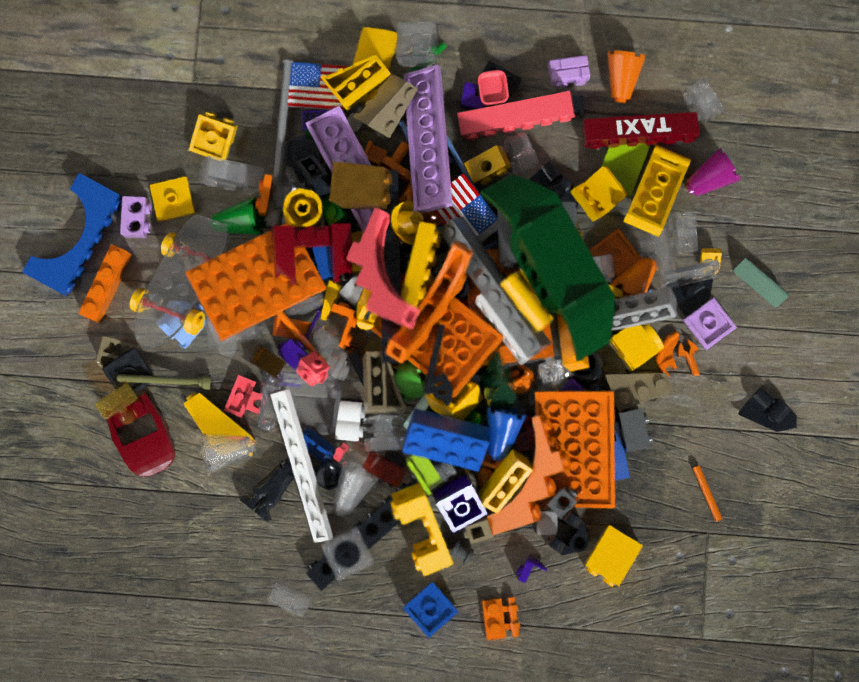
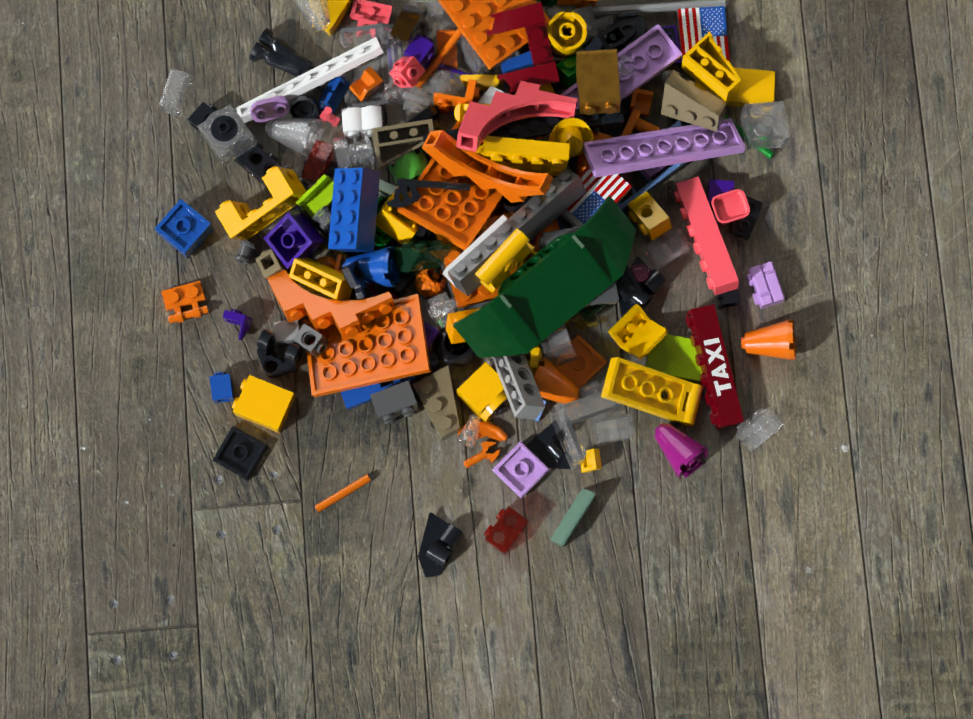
camera: 80 degrees right, 5 degrees down
(315, 411) = (367, 84): none -> orange panel
(325, 508) = (269, 107): none -> lavender plate
(514, 448) = (355, 277): none -> black plate
(541, 179) = (640, 272): none -> clear pink piece
(591, 593) = (221, 387): none -> blue brick
(655, 585) = (240, 453): none -> black tile
(669, 364) = (470, 432): none -> clear cone
(769, 341) = (509, 533): none -> clear red brick

